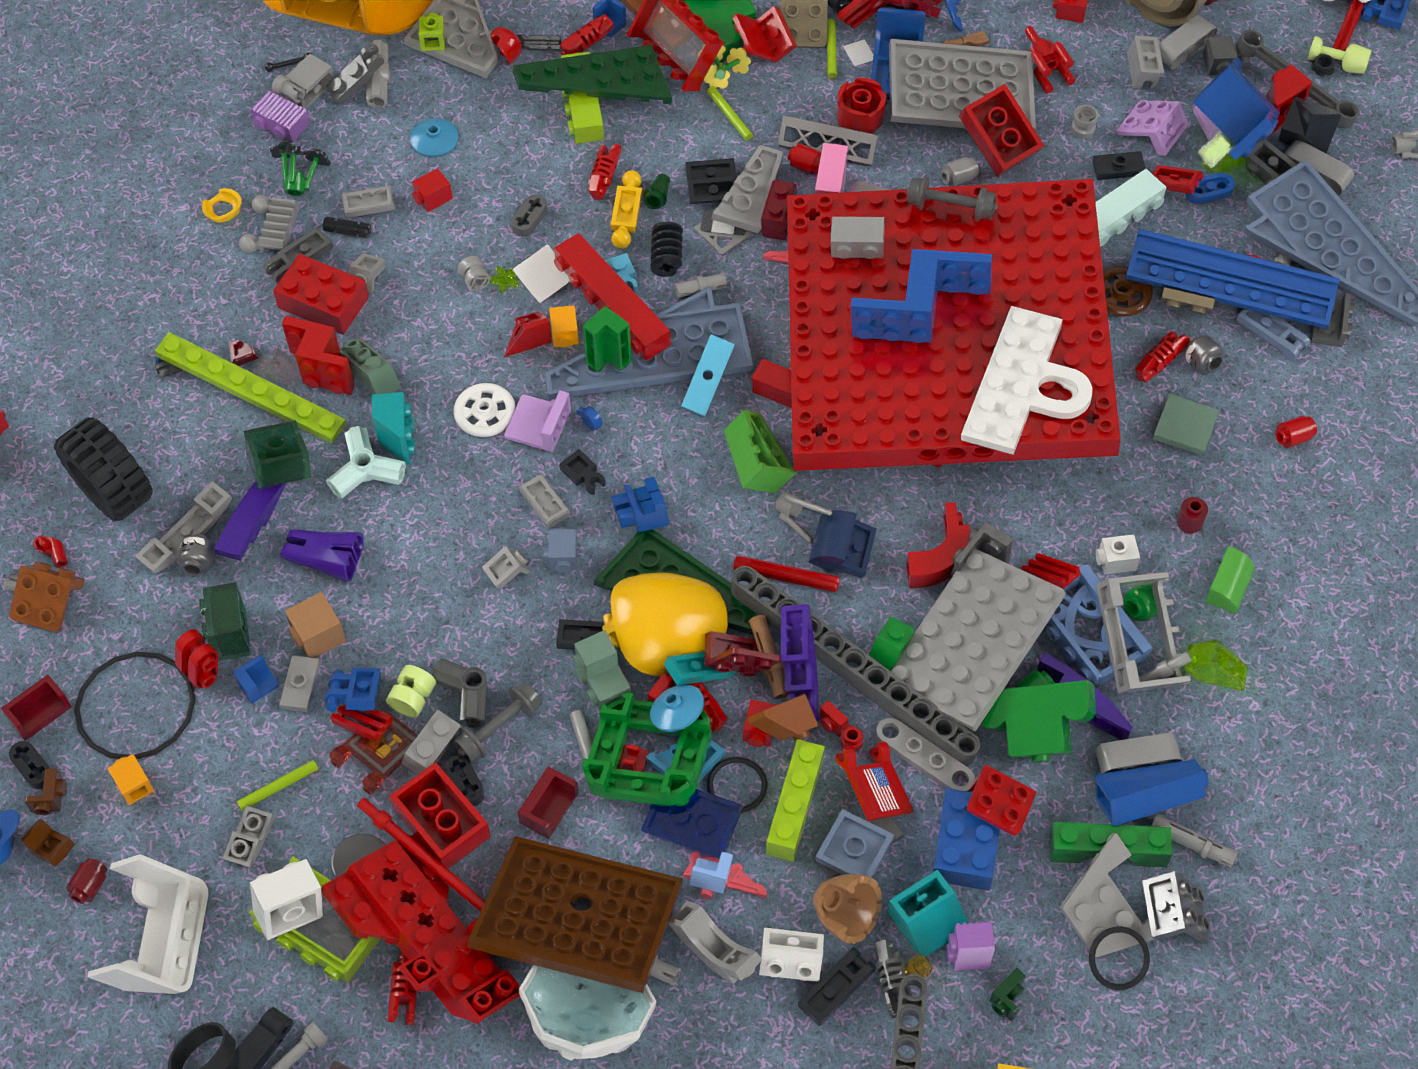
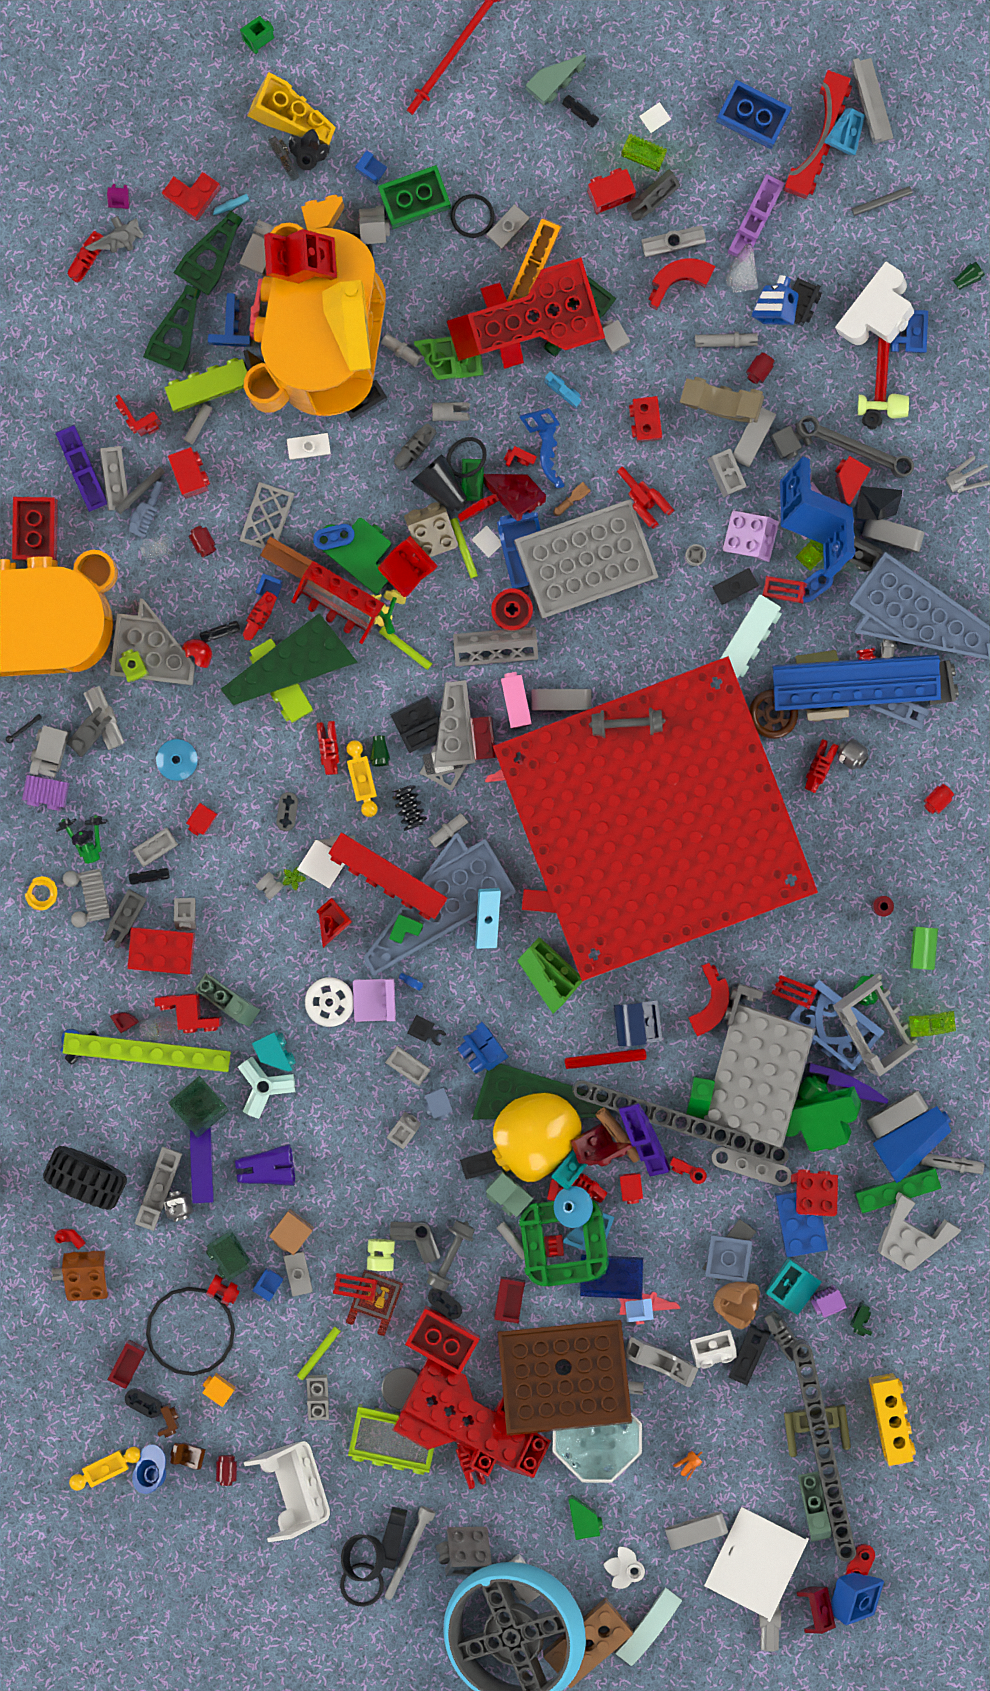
camera: 25 degrees left, 30 degrees up
(286, 899) = (373, 1446): white brick -> none
(361, 691) = (347, 1268): blue plate -> none
(383, 821) = (409, 1363): red bar -> none
(431, 742) = (412, 1290): light grey brick -> none
(564, 326) = (360, 910): light orange brick -> none
(623, 267) = (380, 837): medium azure plate -> none
(756, 767) = (650, 1234): black tyre -> none
(786, 719) = (650, 1185): dark orange slope -> none
(792, 506) = (589, 1003): light grey plant -> none
(795, 800) = (676, 1236): lime brick -> none
(804, 158) = (485, 676): red brick -> none
(857, 237) = (566, 780): light grey piece -> none
(876, 783) = (728, 1205): red flag -> none
(919, 965) = (798, 1319): clear yellow hinge -> none
(928, 274) = (635, 829): blue bracket -> none
(959, 171) = (611, 643): light grey brick -> none
(1001, 130) = (634, 602): red brick -> none
(1014, 380) = (725, 870): white plate -> none
(1118, 554) = (837, 957): white brick -> none
(1119, 929) = (944, 1266): black tyre -> none
(1166, 668) = (897, 1041): light grey bar -> none
(1175, 907) = (954, 1223): flat silver bracket -> none
(1186, 424) = (856, 823): sand green tile -> none

